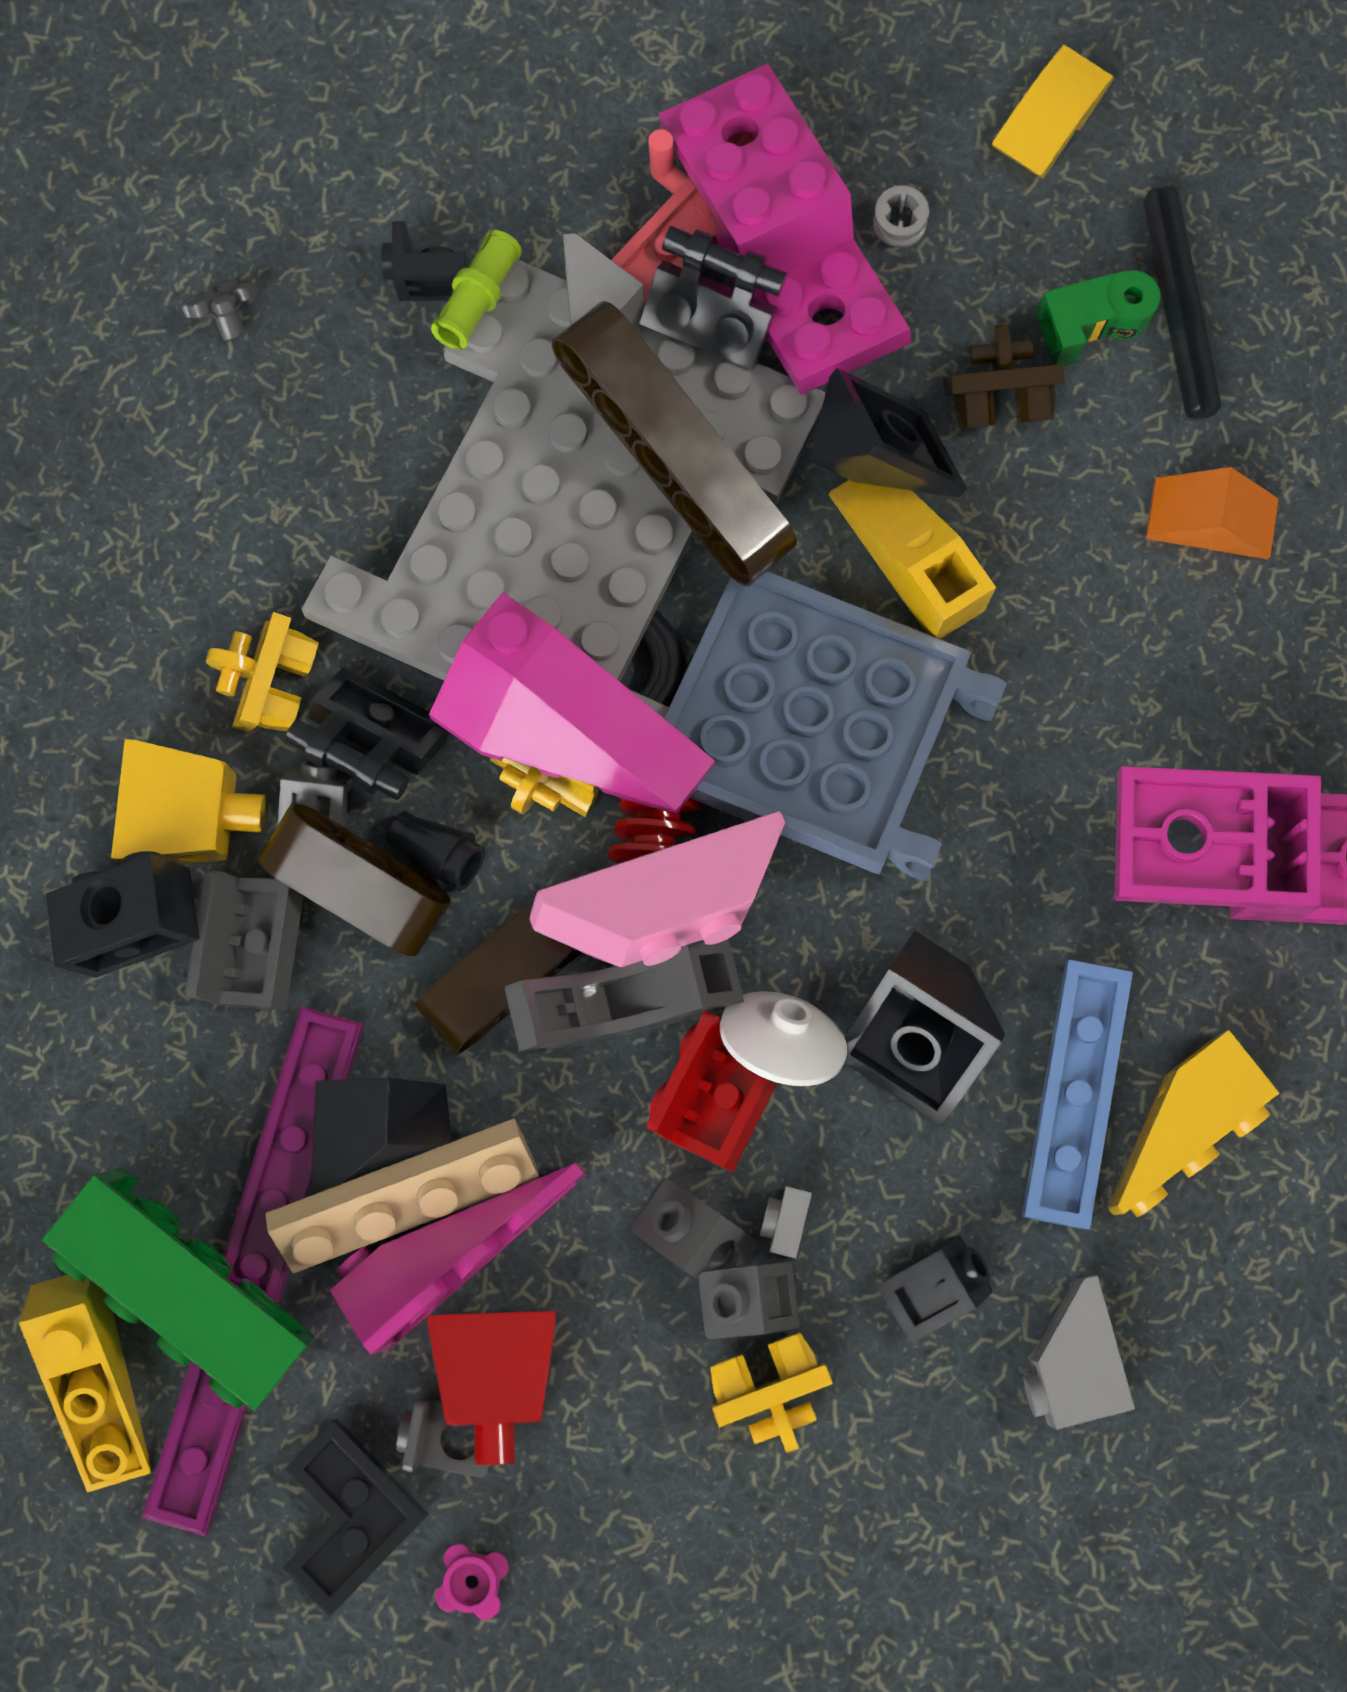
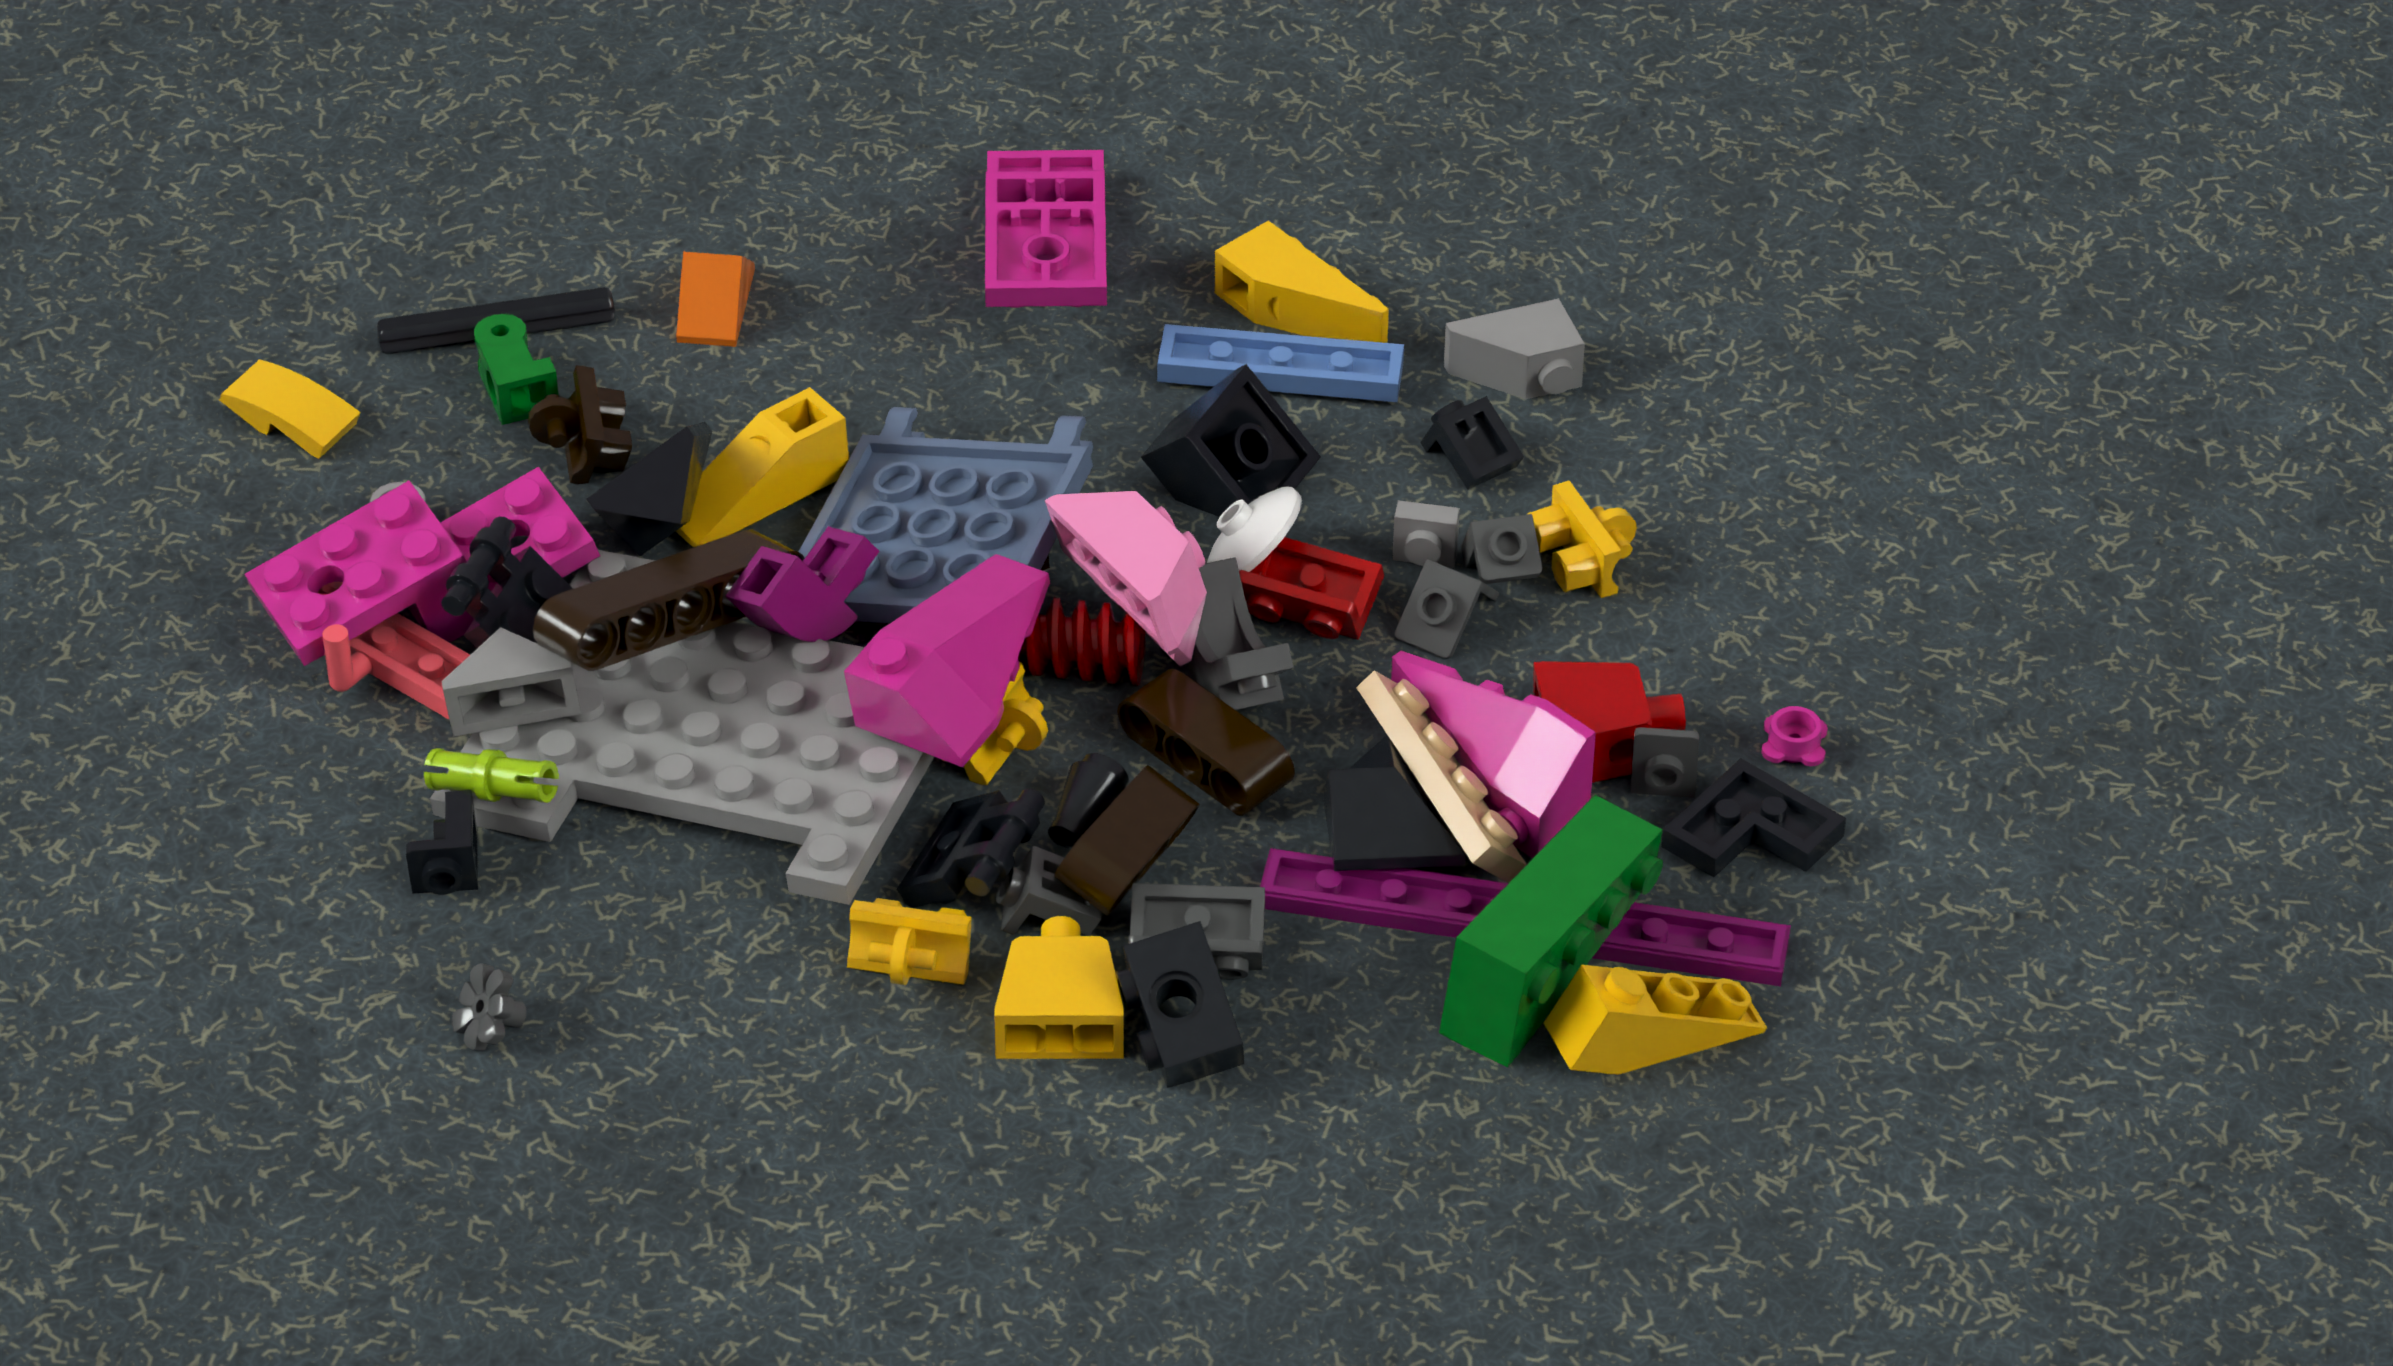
camera: 100 degrees left, 35 degrees down
(681, 573) = (805, 595): none -> magenta brick

